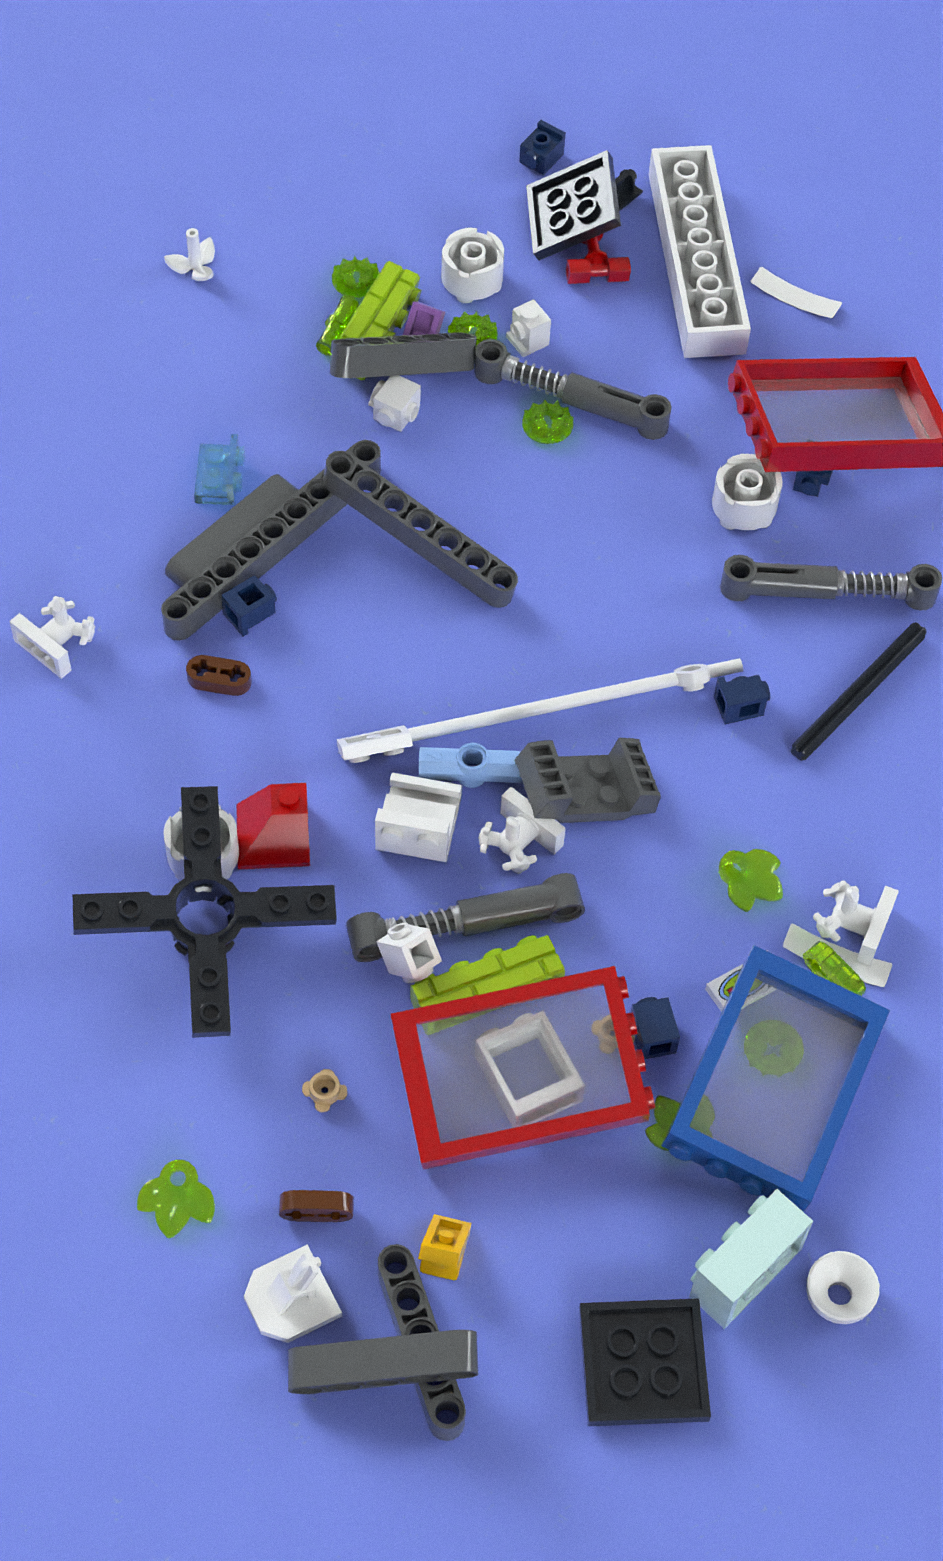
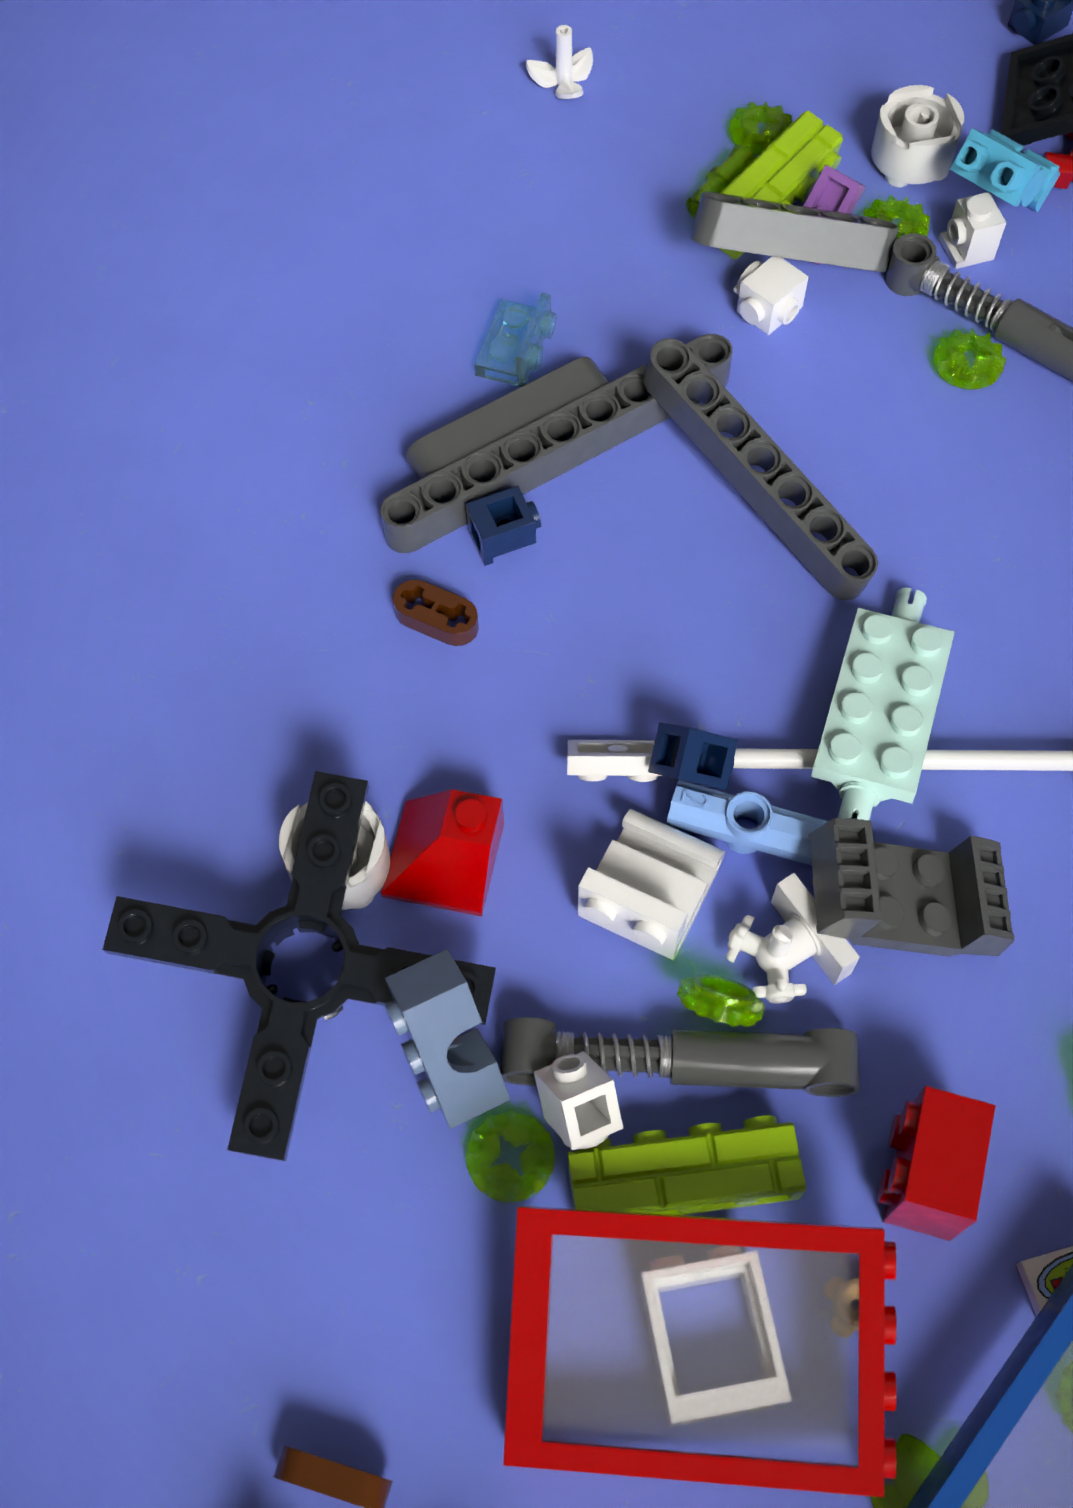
camera: 20 degrees right, 5 degrees up
(47, 641) = (238, 510): white piece -> none
(174, 1203) = (136, 1409): clear neon green plate -> none
(301, 913) = (434, 1008): none -> sand blue arch
(324, 1079) = (387, 1271): tan plate -> none
(372, 1017) = (502, 1181): none -> clear neon green gear
(426, 727) = (693, 755): none -> dark blue brick
(483, 875) = (721, 1000): none -> clear neon green gear
(542, 280) = (1004, 169): none -> medium azure hips
(543, 668) = (883, 707): none -> light aqua plate
(640, 935) = (937, 1163): none -> red brick
(655, 1027) = (925, 1315): dark blue brick -> none

